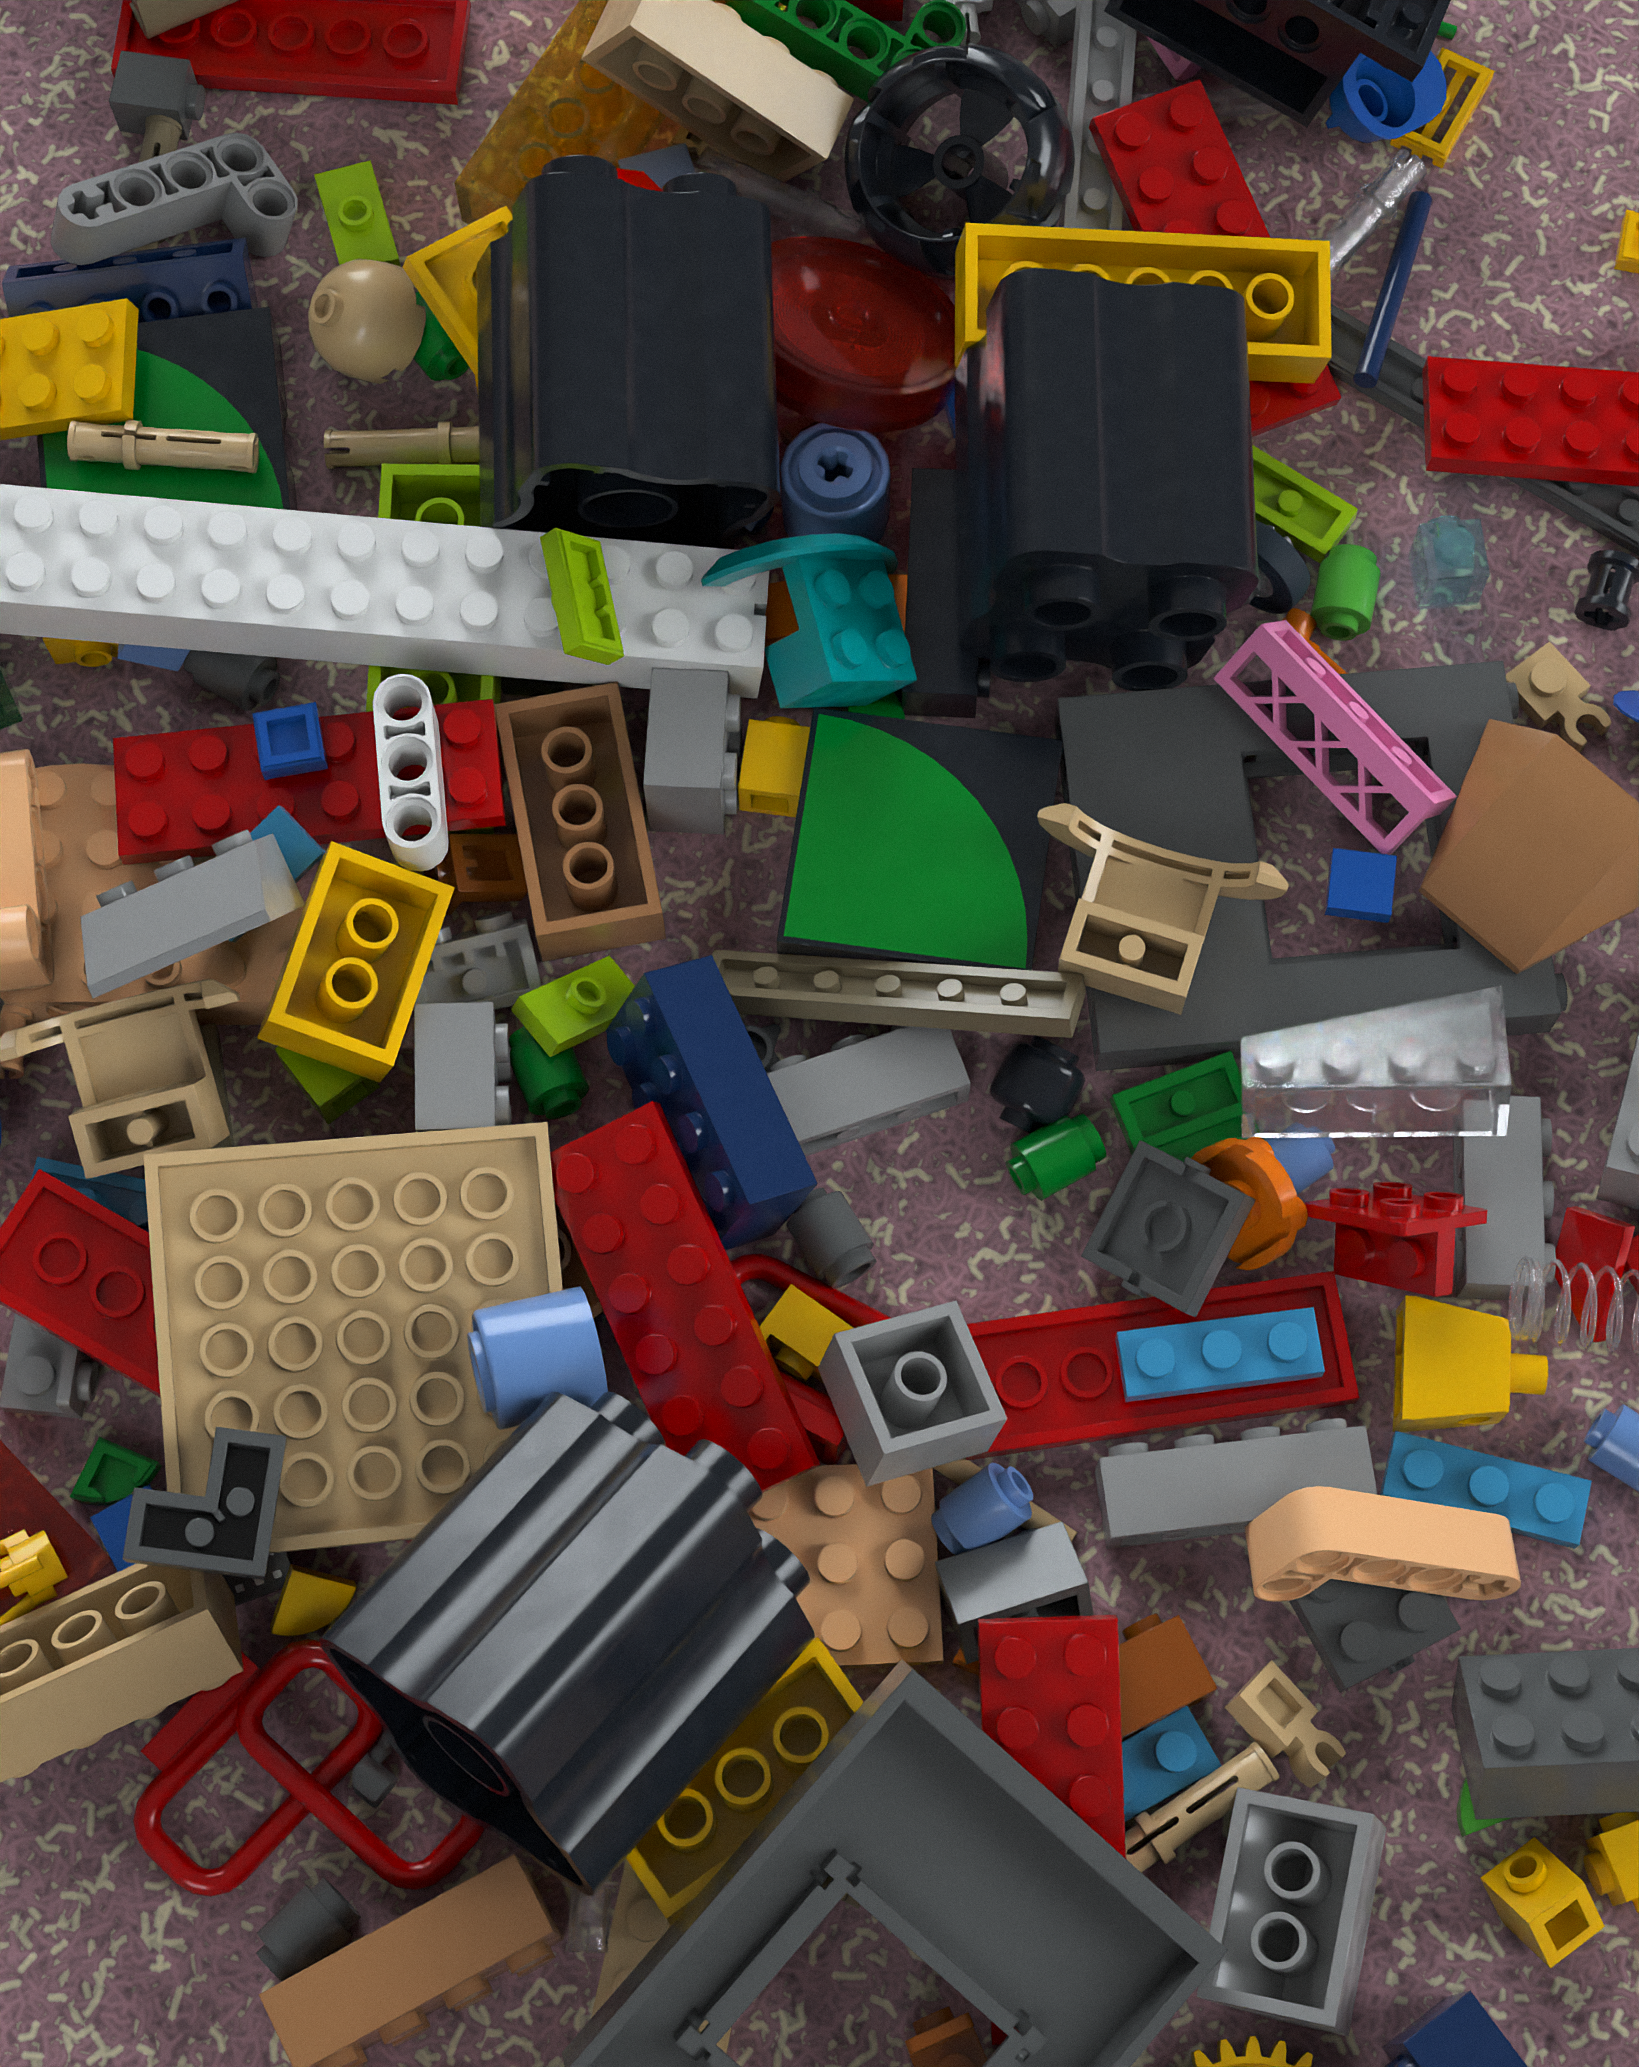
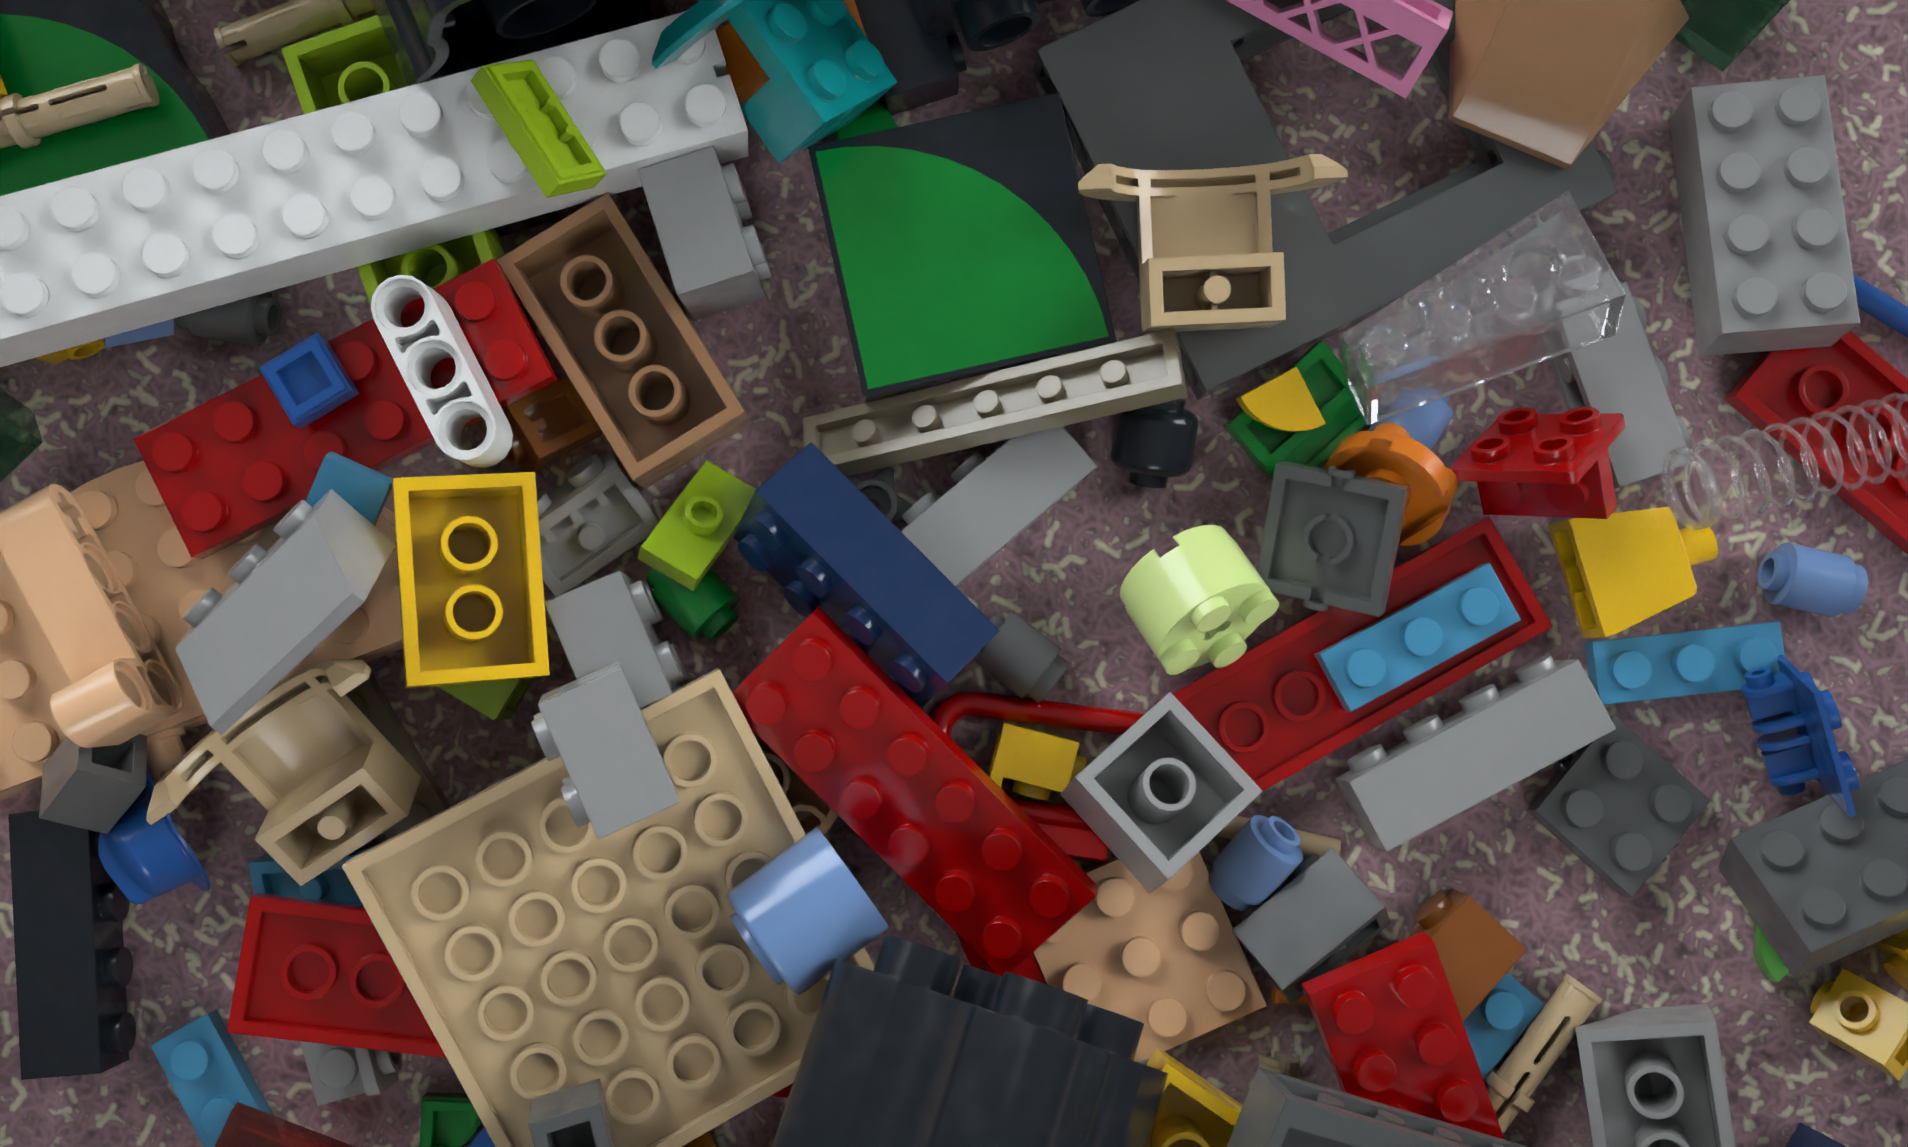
camera: 30 degrees left, 15 degrees up
(424, 1130) = (606, 750): none -> light grey brick
(773, 766) = (790, 215): yellow brick -> none
(1017, 1236) = (1197, 600): none -> yellowish green brick
(1055, 1156) = (1196, 497): green brick -> none
(1169, 1091) = (1283, 403): none -> yellow tile
(1279, 1720) = (1581, 946): tan plate -> none
(1360, 885) = (1393, 135): blue tile -> none
(1378, 1542) = (1626, 769): light nougat beam -> none
(1576, 1613) = (1798, 733): none -> blue hinge
(1598, 1243) = (1713, 408): red tile -> none

